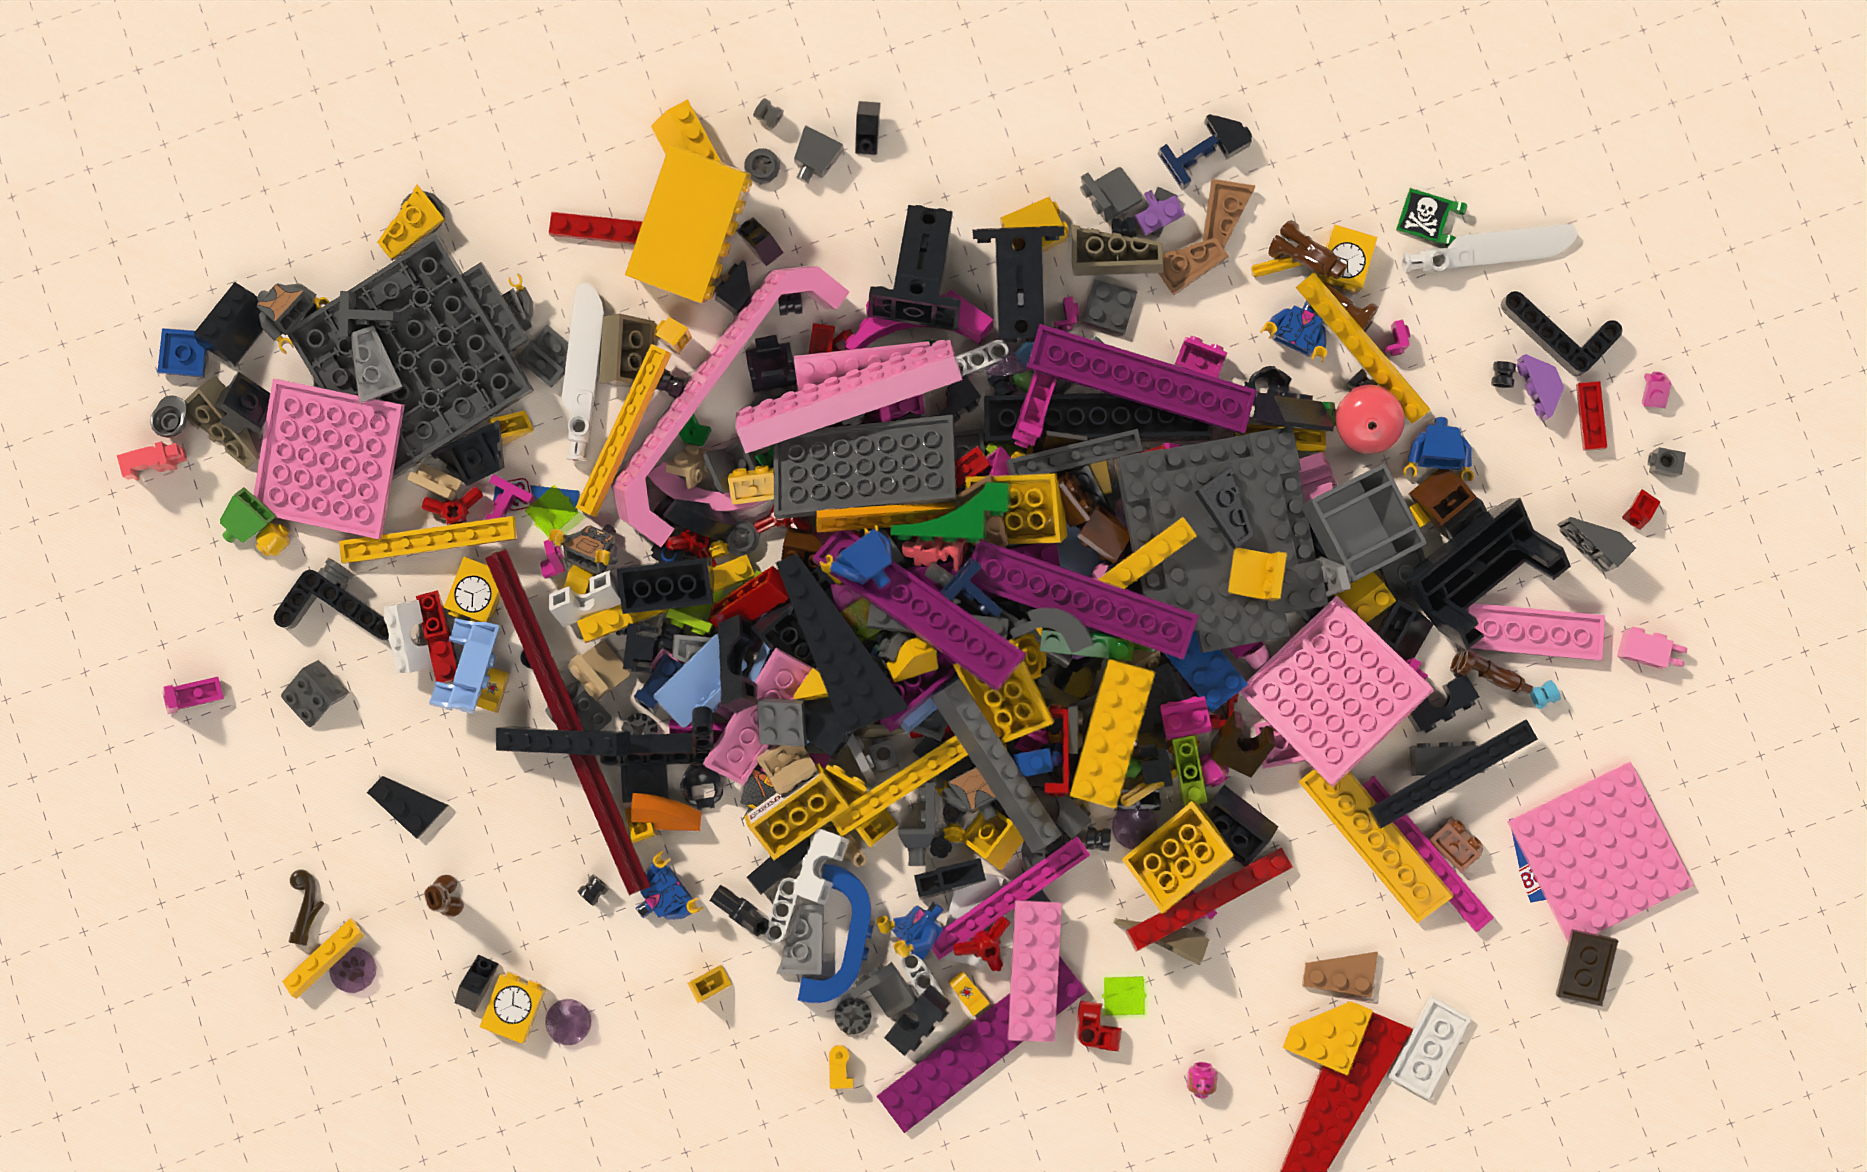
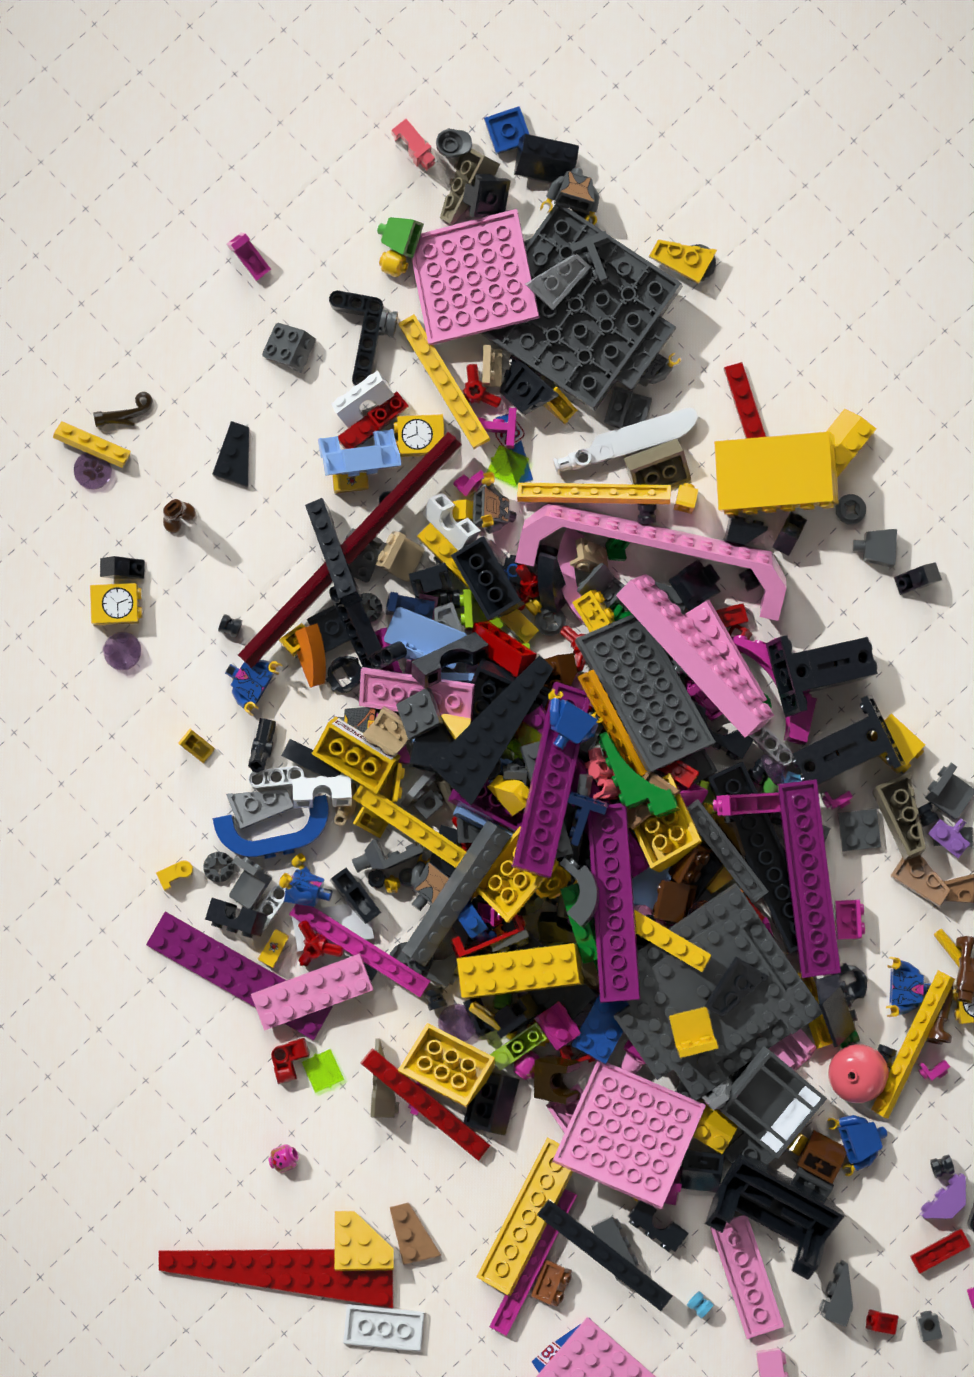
camera: 65 degrees right, 0 degrees up
(768, 113) = (894, 495): dark grey wheel -> none
(993, 839) = (400, 916): yellow slope -> none
(1467, 660) = (698, 1258): reddish brown piece -> none

